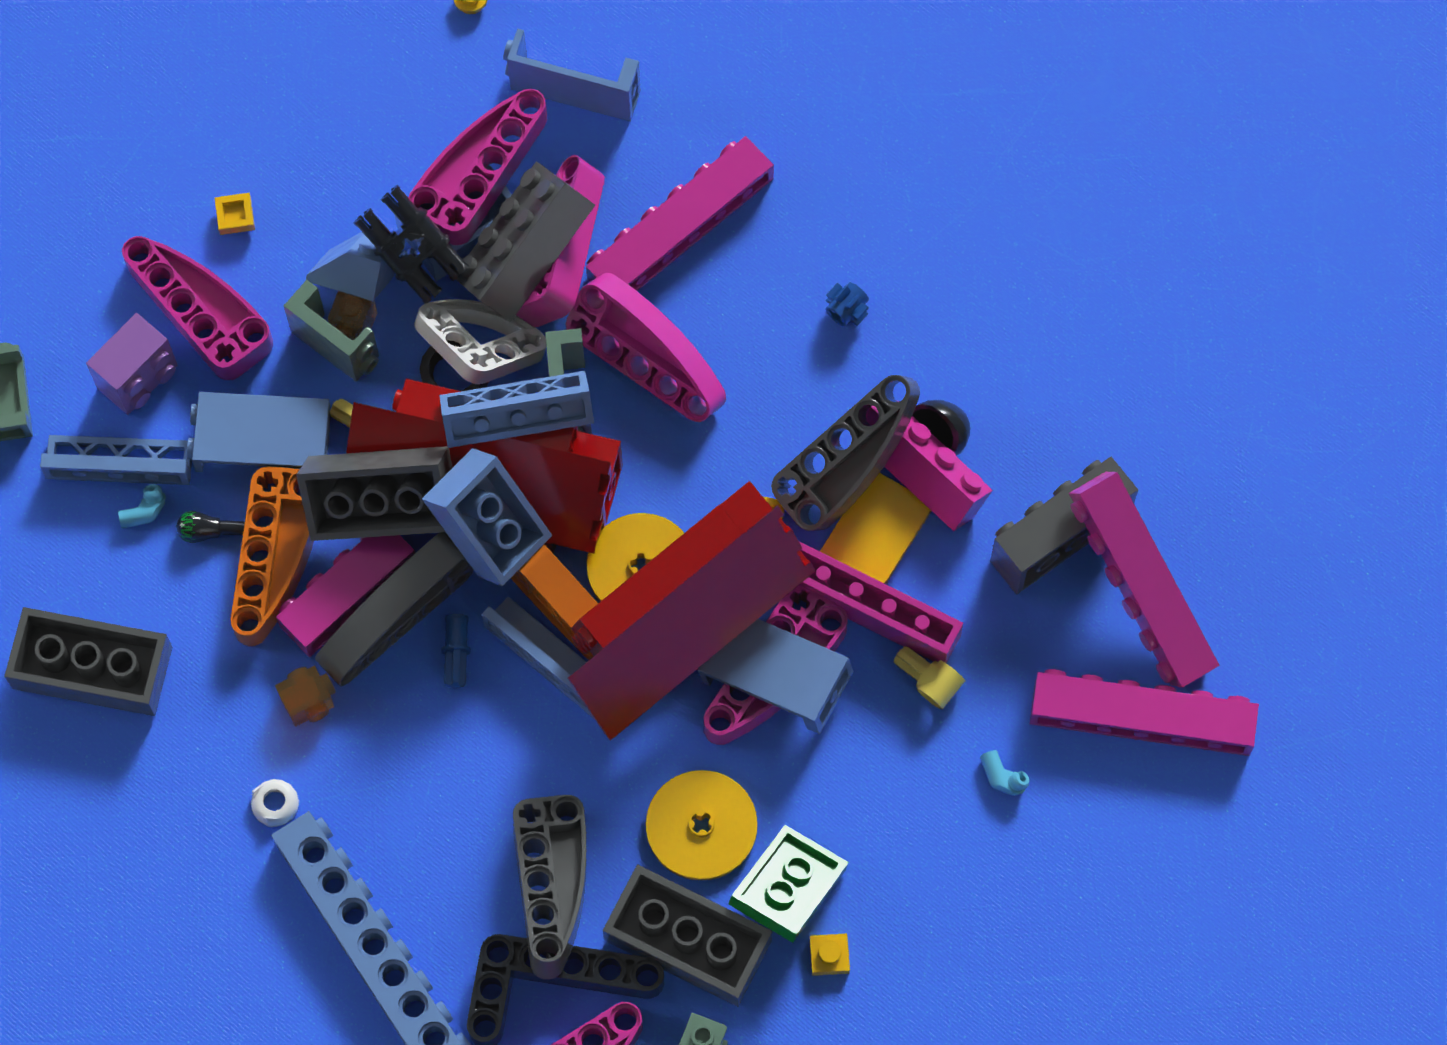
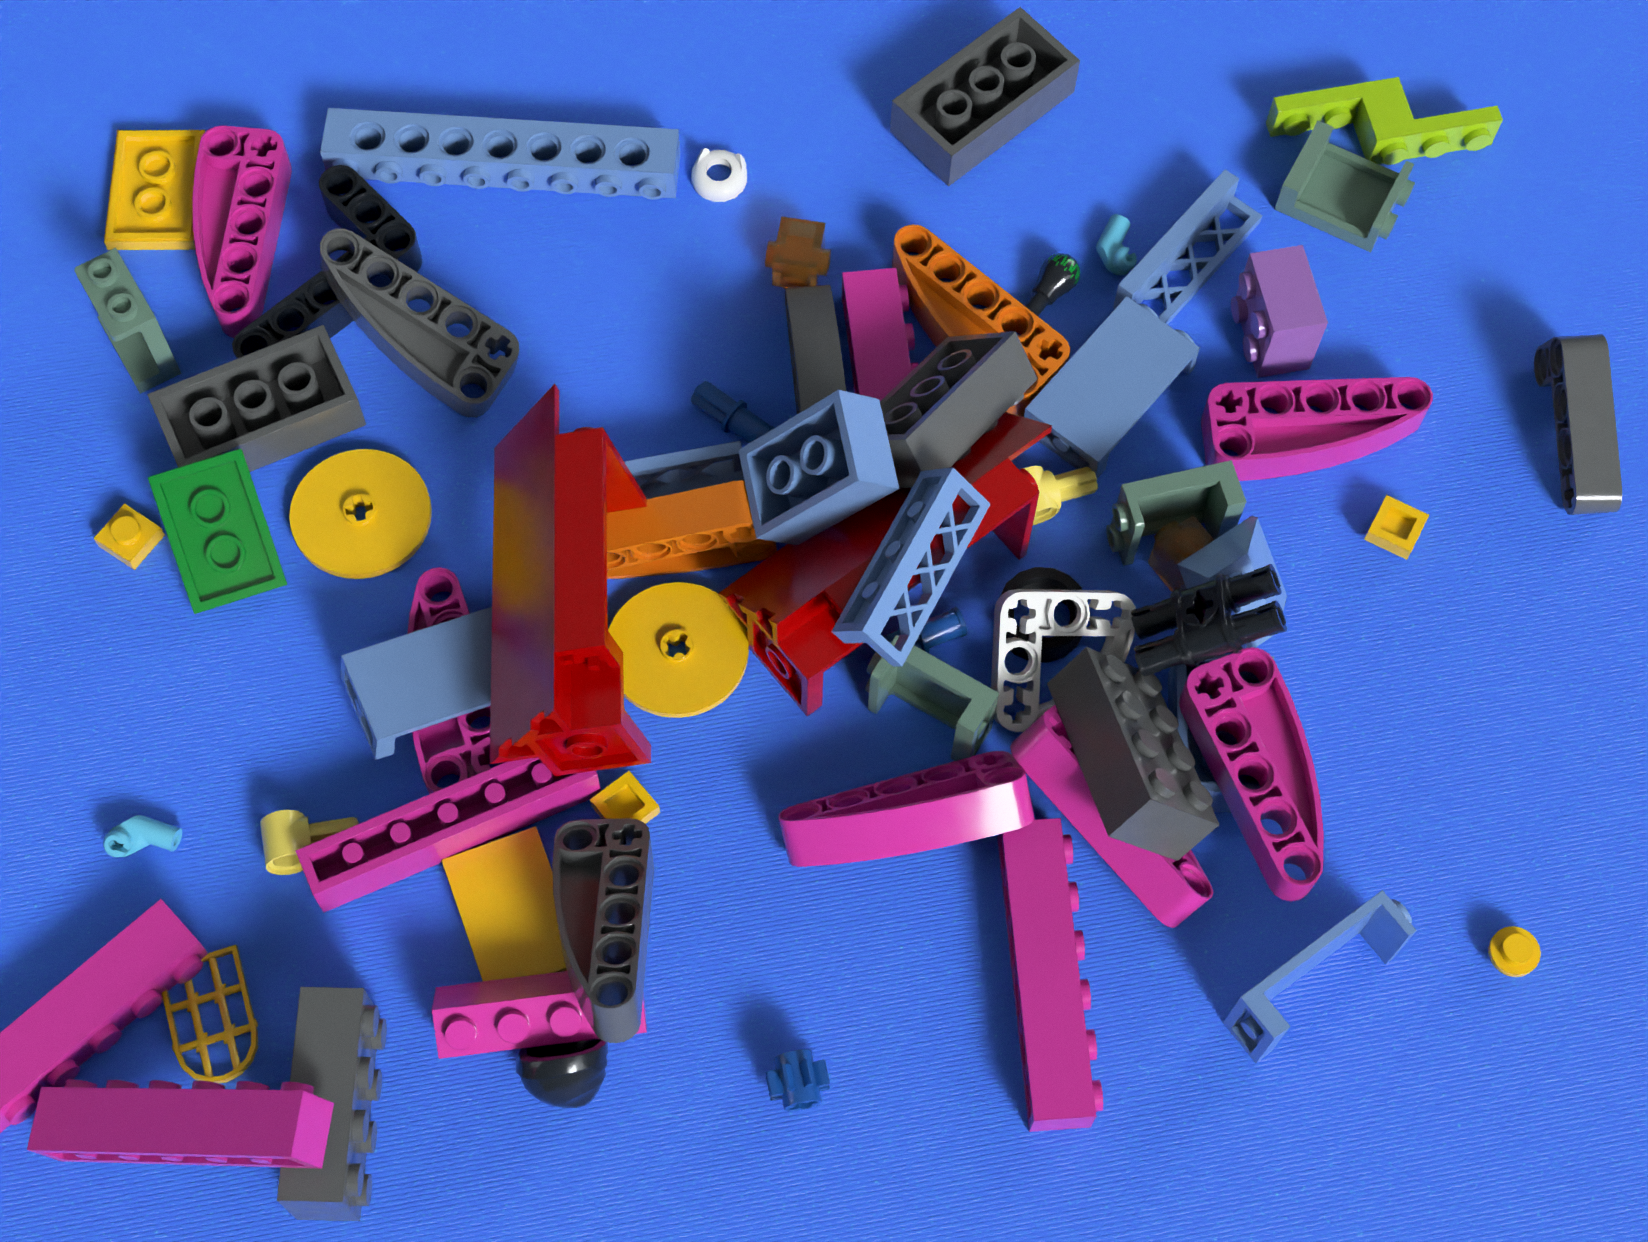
camera: 125 degrees right, 5 degrees down
(75, 147) = (1584, 421): none -> dark grey beam
(1068, 631) = (229, 1032): none -> yellow window

